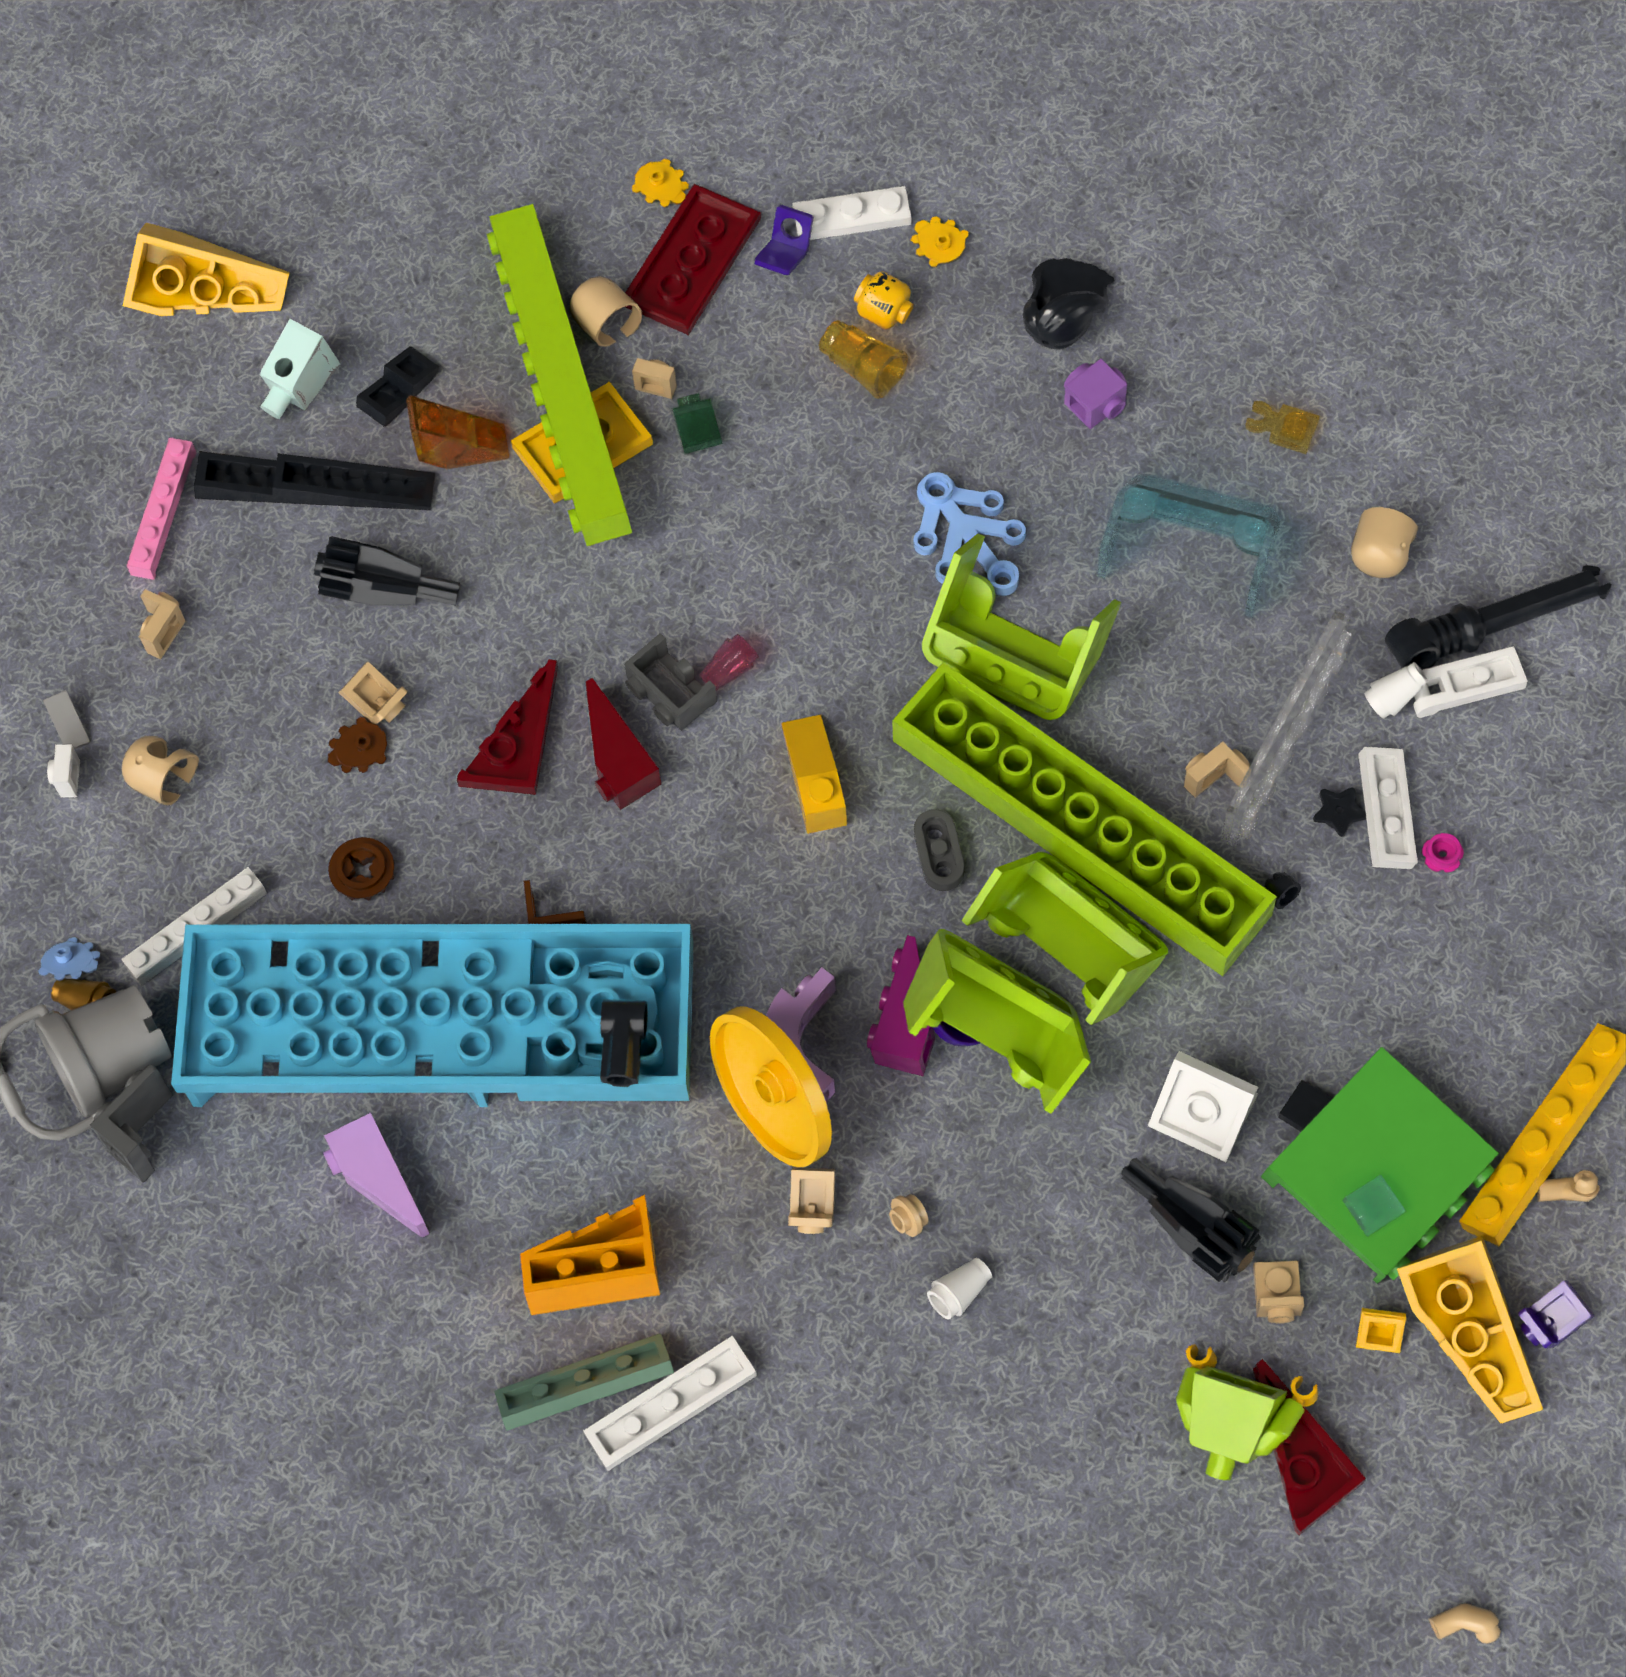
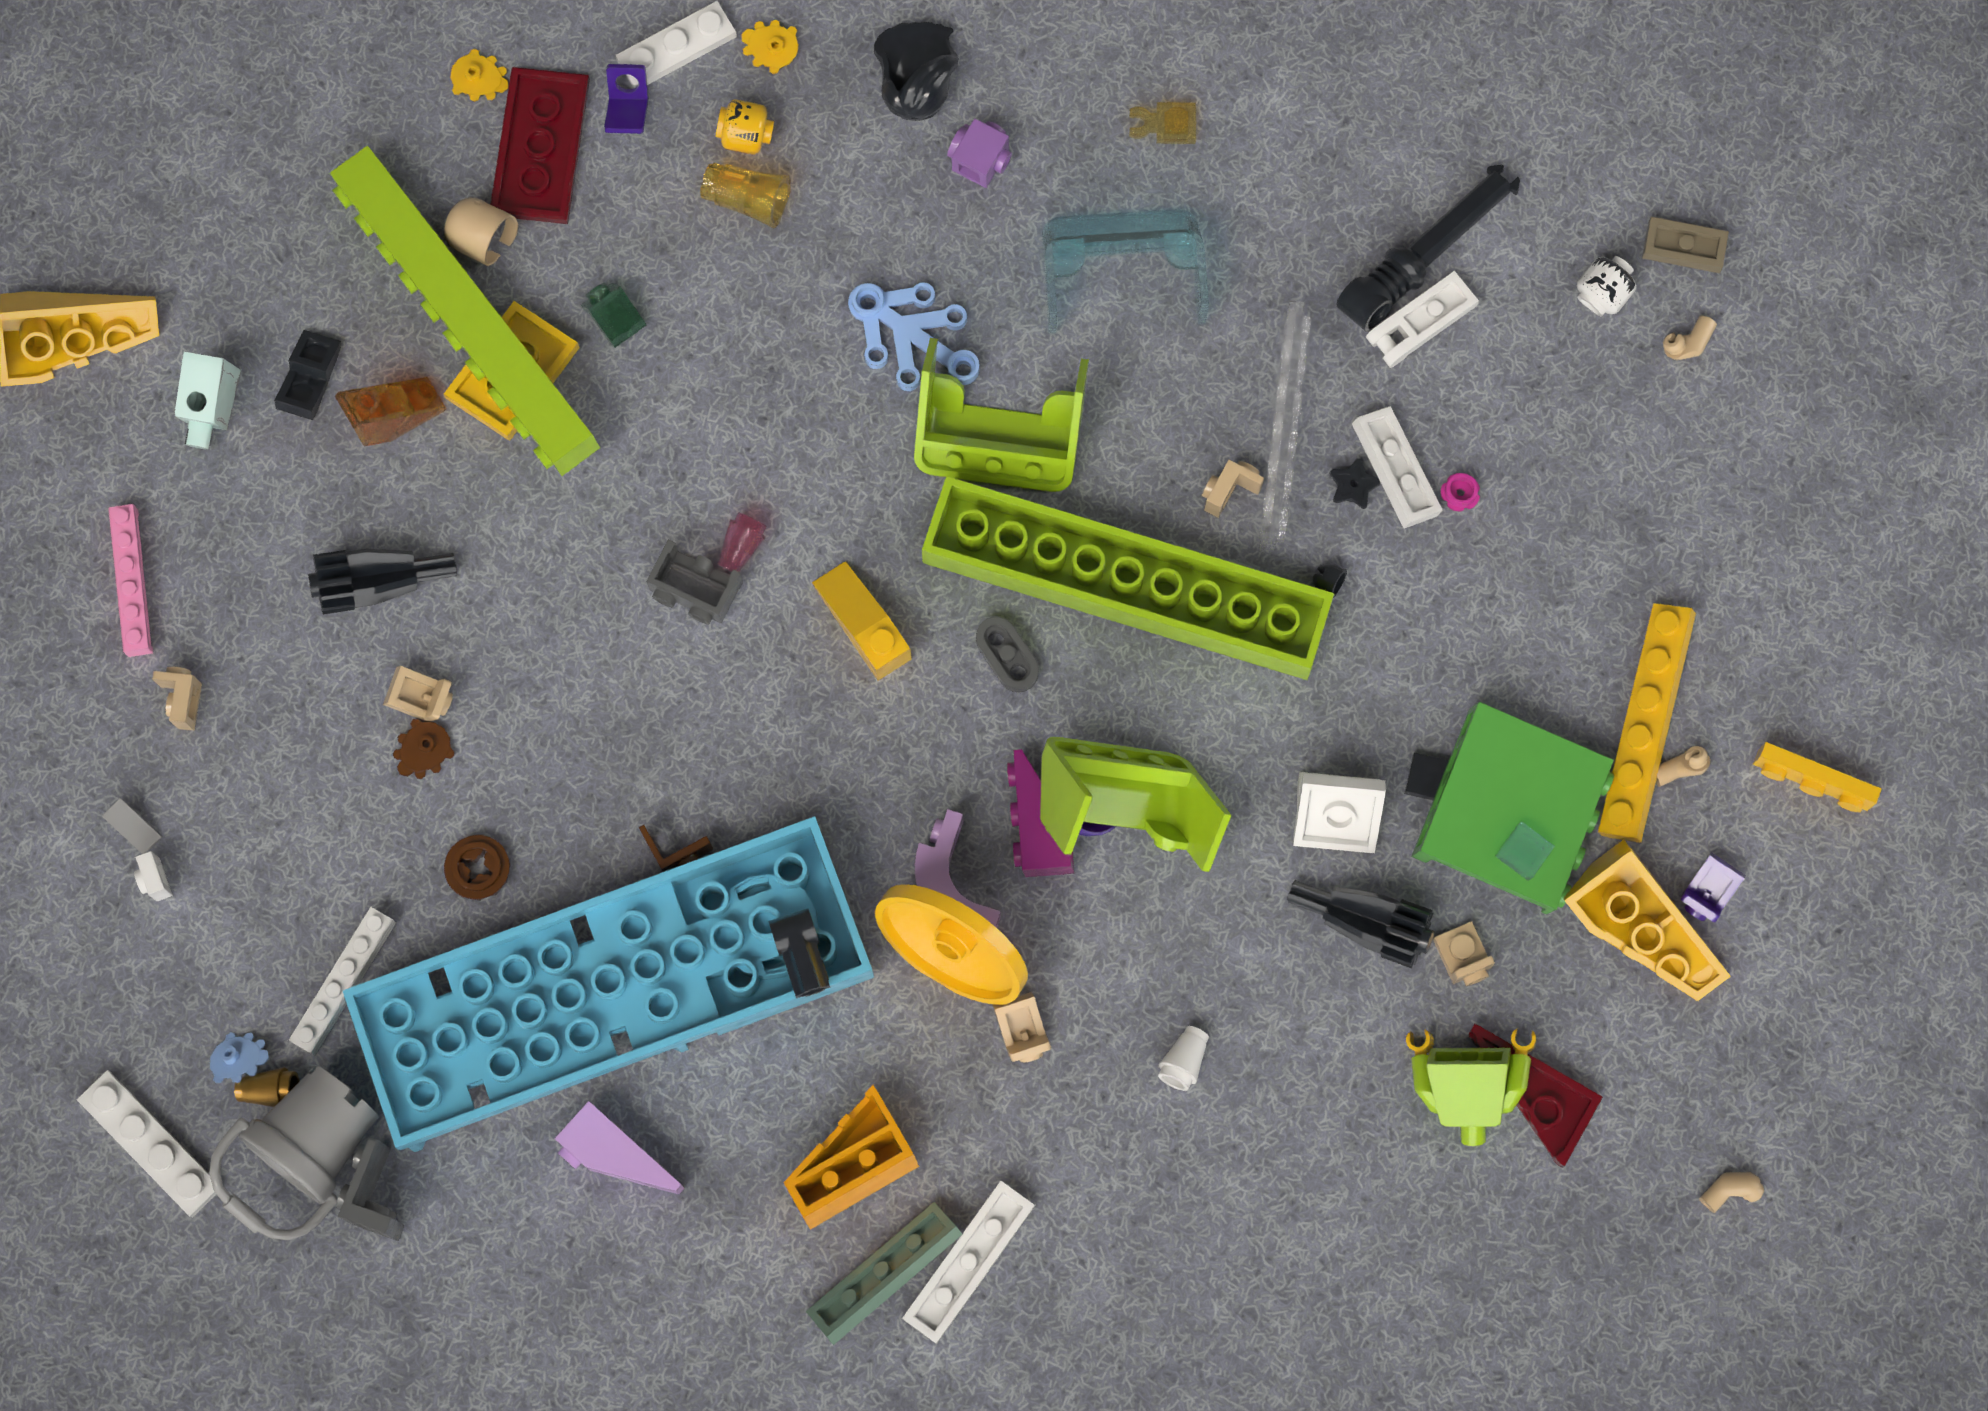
camera: 25 degrees left, 10 degrees up
(148, 765) = (240, 852): tan helmet -> none
(311, 482) = (266, 502): black slope -> none
(514, 752) = (573, 702): dark red wing -> none
(620, 760) = (679, 675): dark red slope -> none
(654, 377) = (555, 281): tan plate -> none
(908, 1215) = (1113, 1009): tan plate -> none
(1072, 925) = (1161, 683): lime windscreen -> none
(1380, 1330) = (1566, 957): yellow slope -> none
(1382, 542) = (1300, 211): tan helmet -> none
(1395, 690) = (1364, 351): white cone -> none

